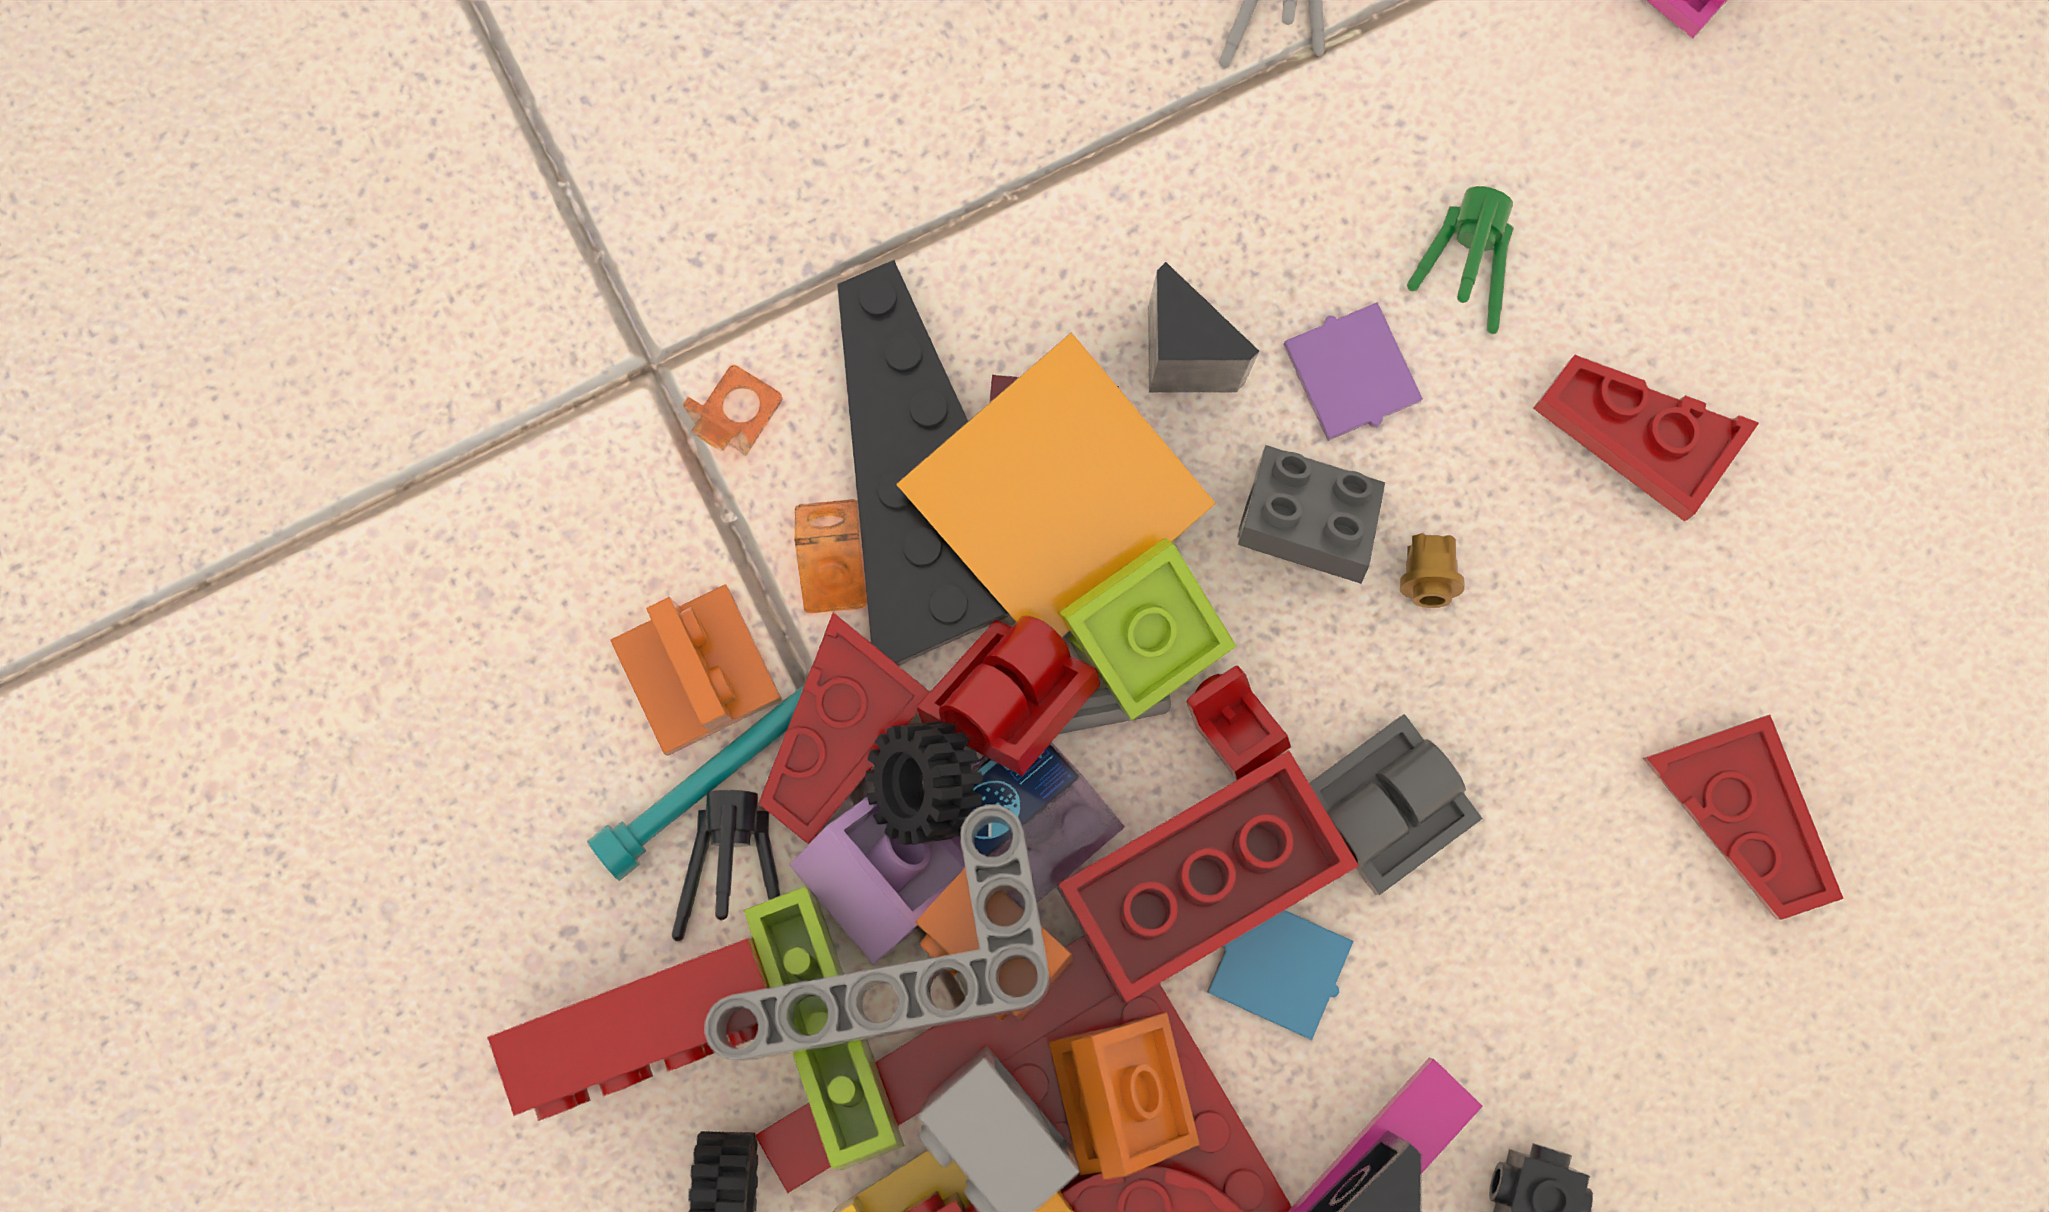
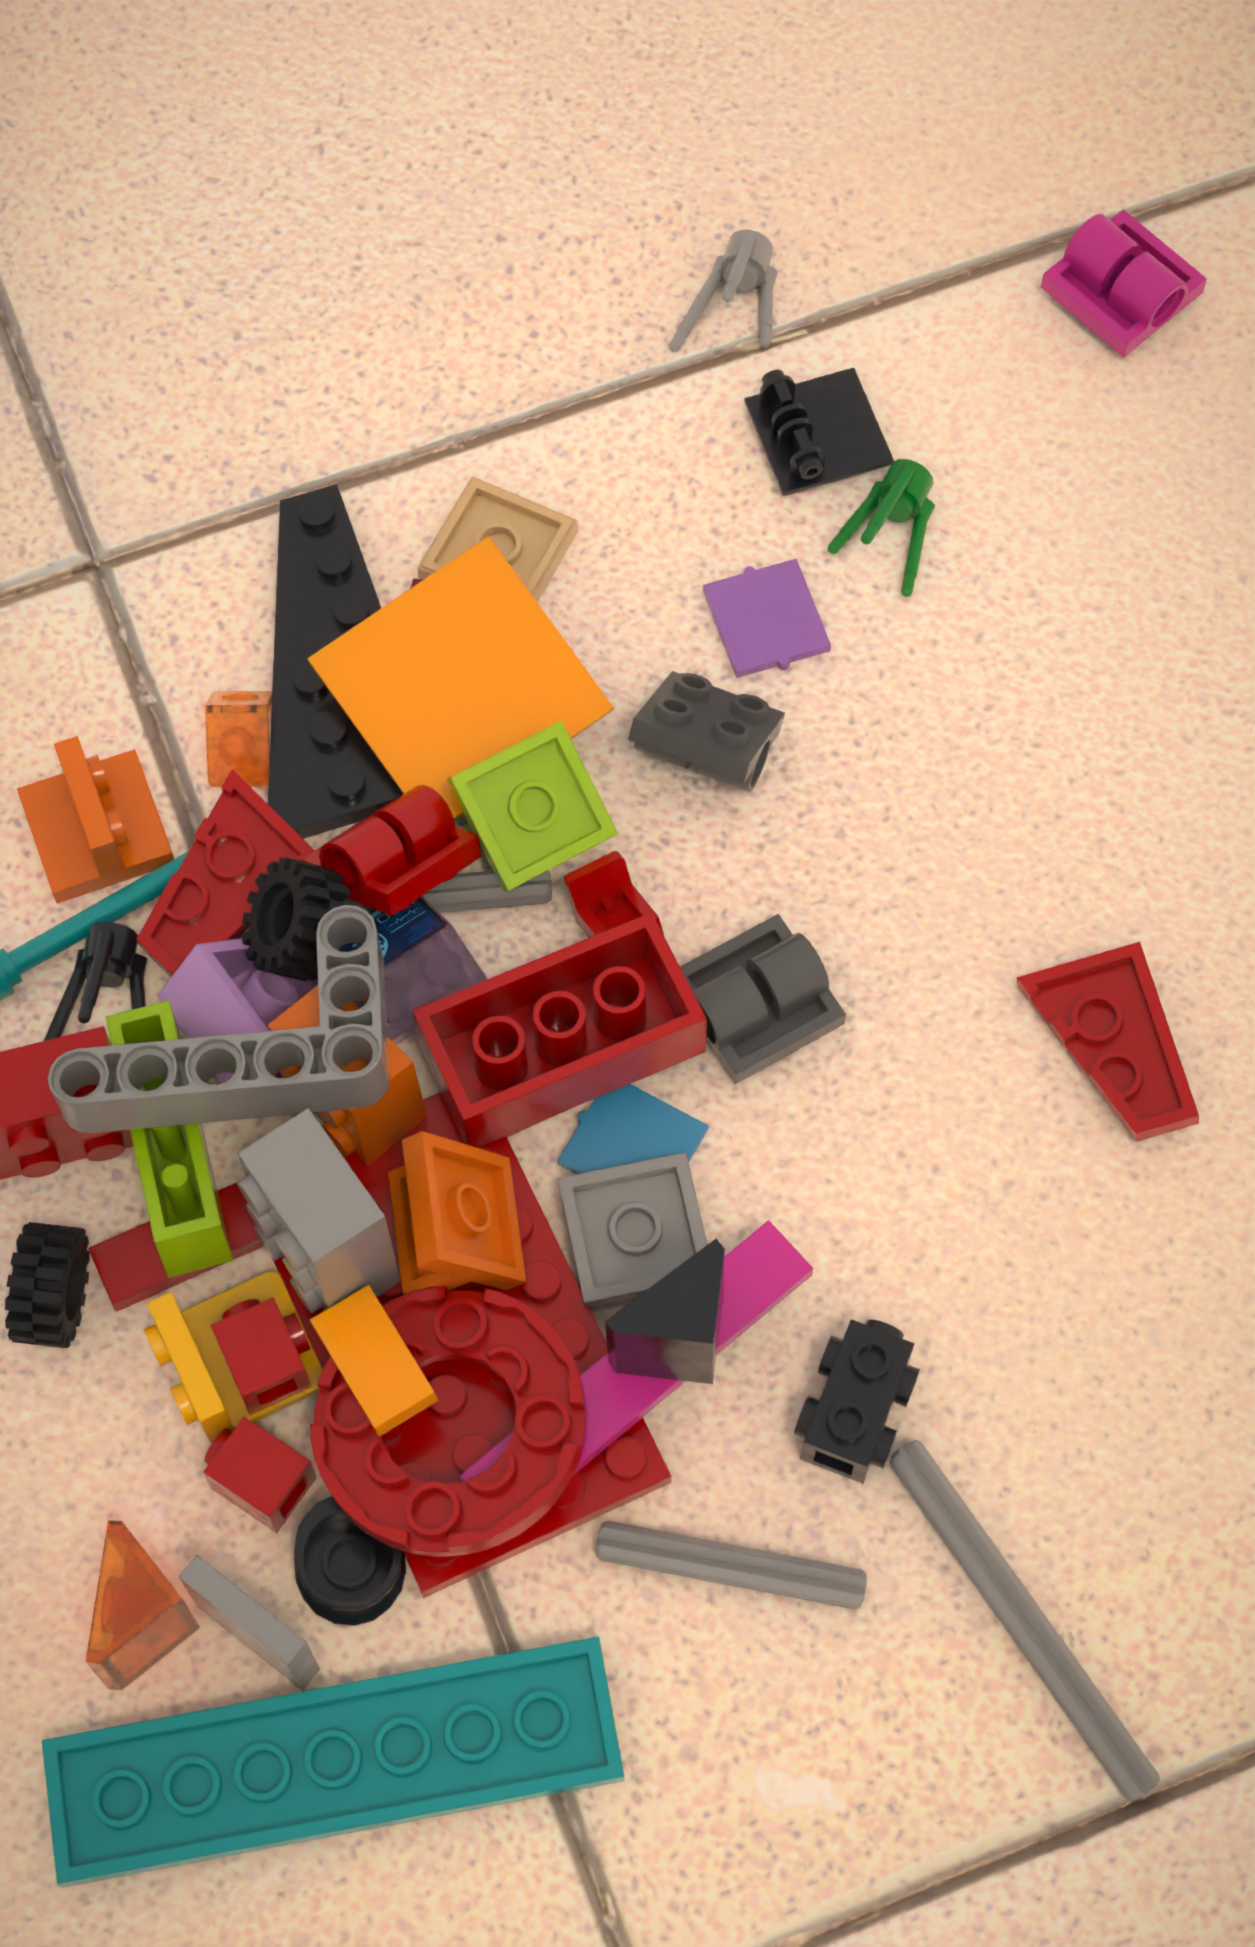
camera: 10 degrees right, 15 degrees down
(717, 428) = (151, 611): clear orange bracket -> none
(1064, 295) = (524, 532): none -> tan tile
(1192, 342) = (609, 567): black slope -> none
(1296, 1067) = (630, 1226): none -> light grey plate
(1385, 151) = (817, 429): none -> black hinge
(1432, 571) = (820, 792): pearl gold hose -> none
(1652, 439) = (1052, 698): red wing -> none

